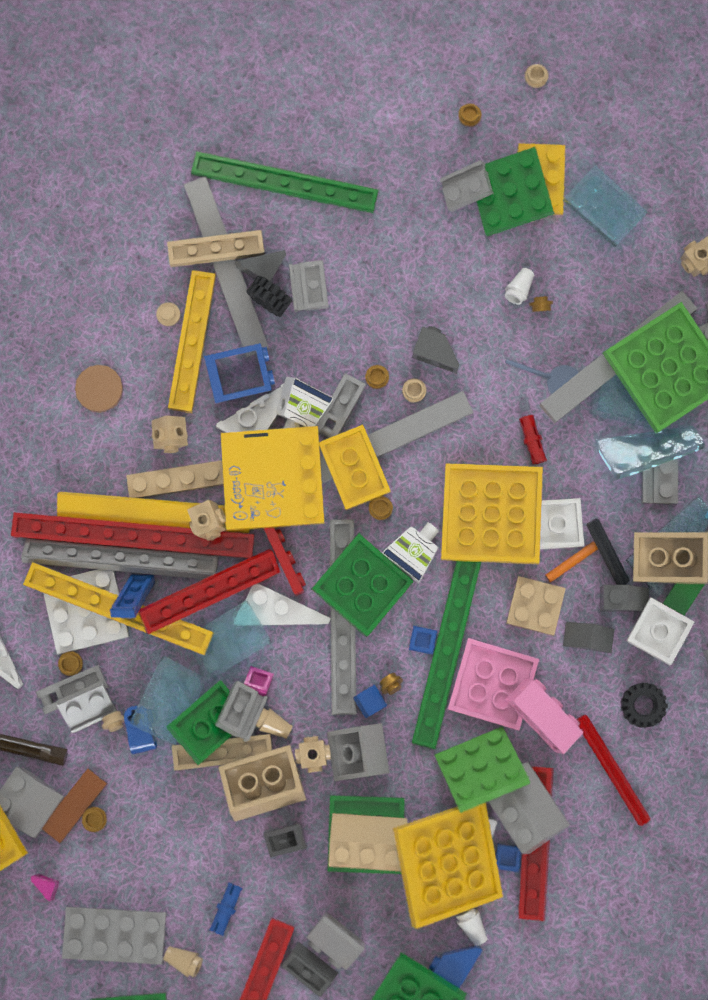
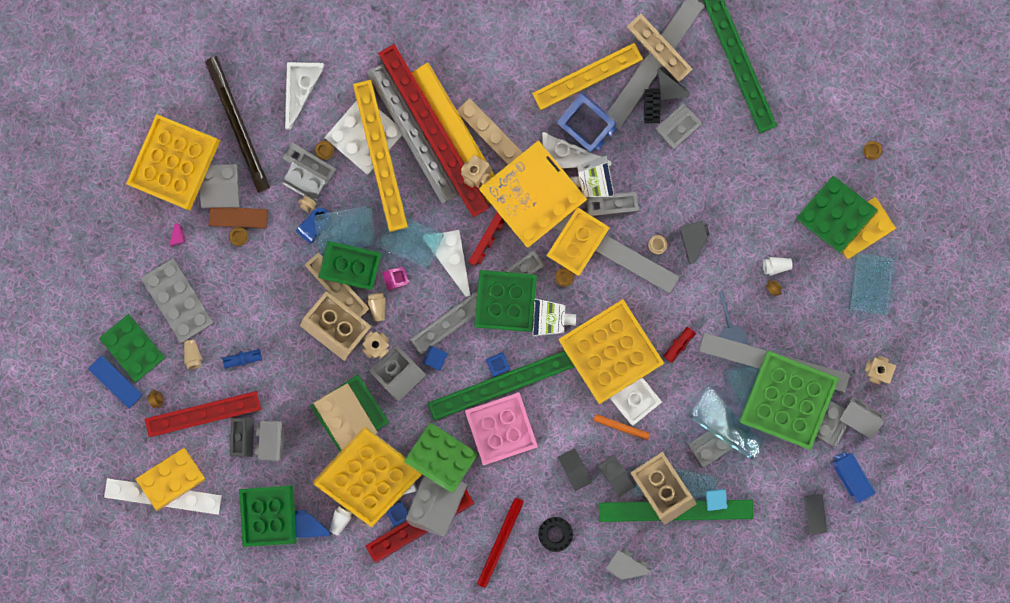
camera: 50 degrees right, 5 degrees up
(99, 388) = (513, 38): medium nougat tile -> none
(132, 596) = (394, 159): blue tile -> none
(168, 314) = (594, 48): tan plate -> none
(169, 433) = (515, 106): tan brick -> none
(208, 591) = (432, 206): red plate -> none
(241, 711) = (370, 280): light grey plate -> none
(285, 840) = (310, 366): dark grey slope -> none
(377, 377) = (649, 214): pearl gold plate -> none
(390, 684) = (455, 363): pearl gold plate -> none
(466, 186) = (819, 182): light grey plate -> none
(535, 606) = (571, 421): tan plate -> none
(536, 75) = (931, 175): tan plate -> none
(545, 715) = (504, 475): bright pink brick -> none
(607, 552) = (638, 444): black axle -> none
(660, 631) = (609, 512): white plate -> none

